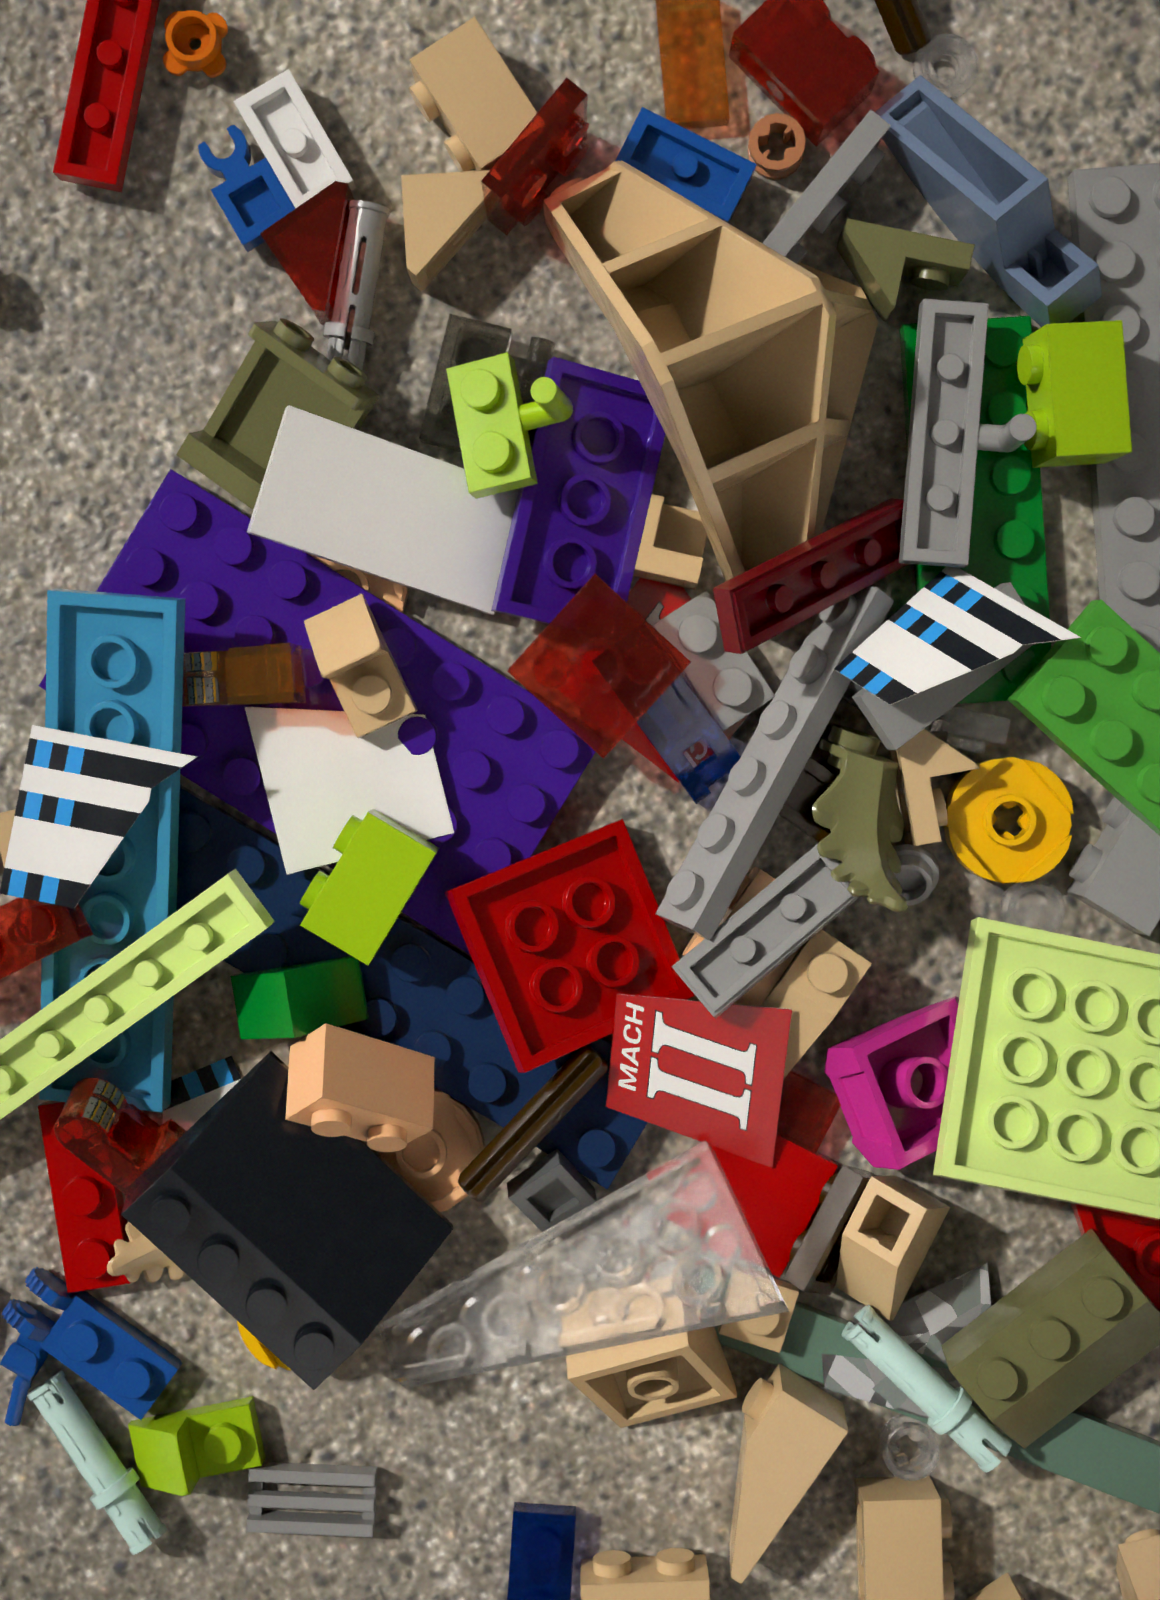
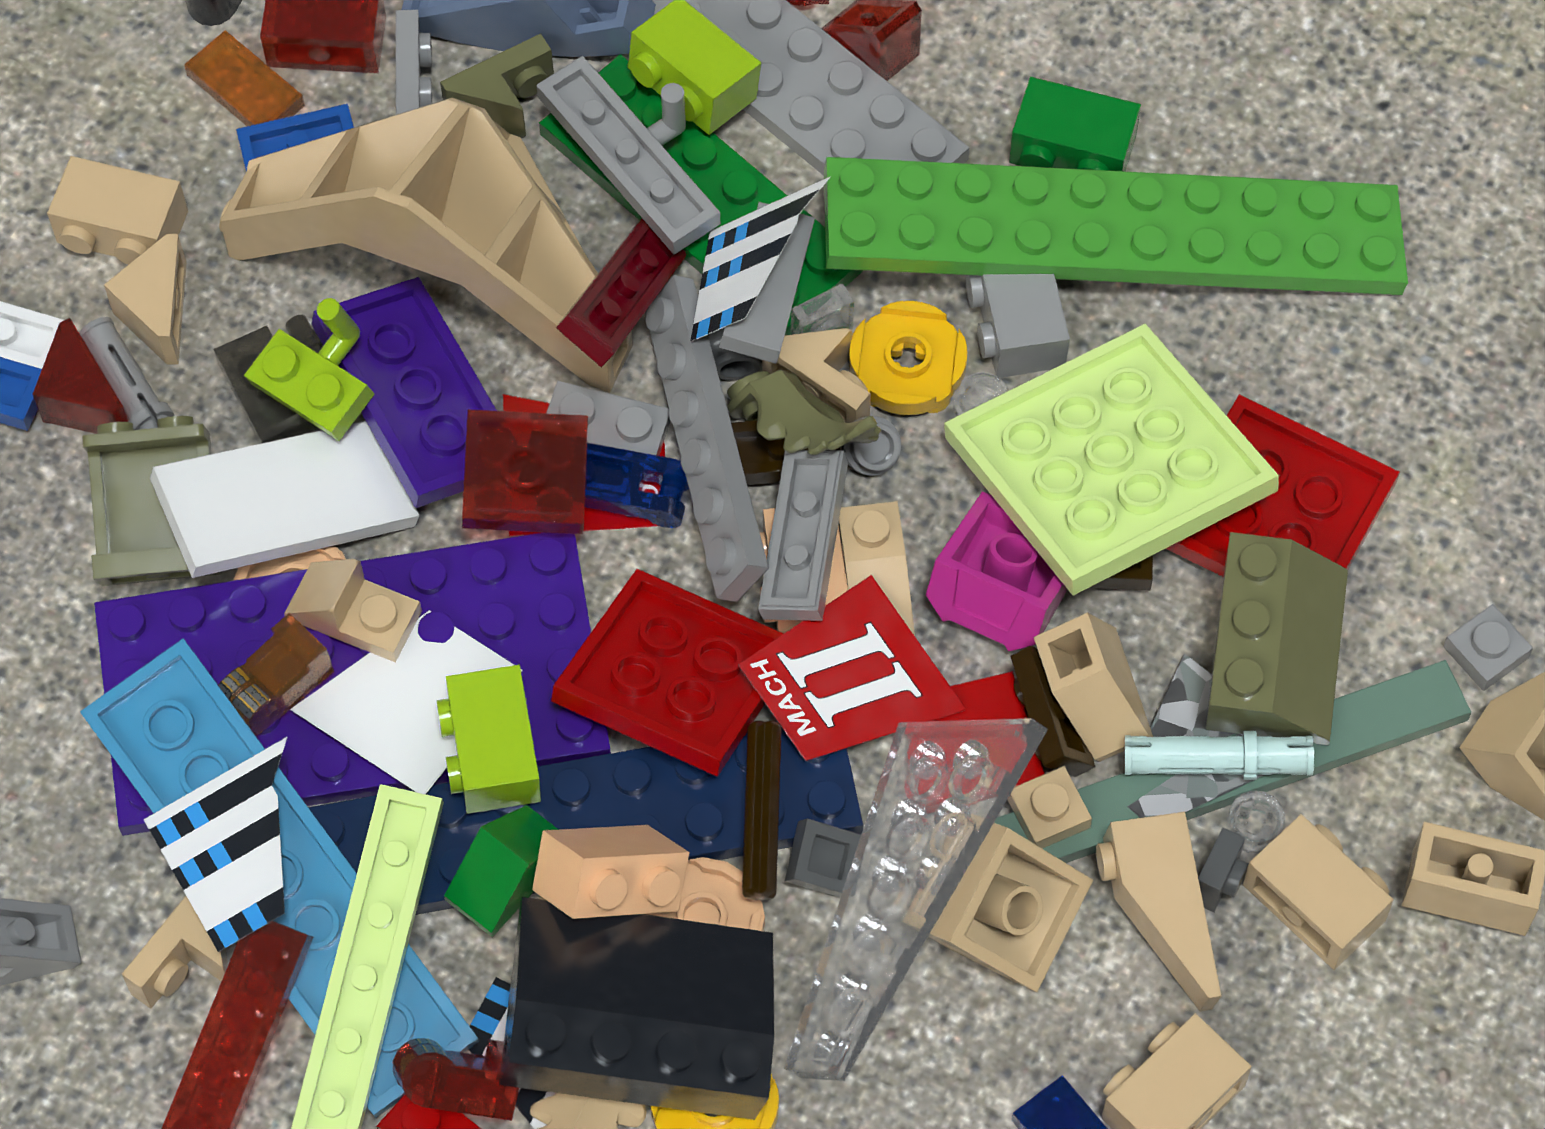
camera: 45 degrees left, 25 degrees down
(544, 148) = (192, 202): clear red plate -> none
(671, 545) = (509, 374): tan panel -> none
(792, 156) = (351, 73): nougat bush -> none
(806, 1111) = (955, 654): clear red tile -> none
(846, 1472) = (1223, 869): none -> dark grey plate

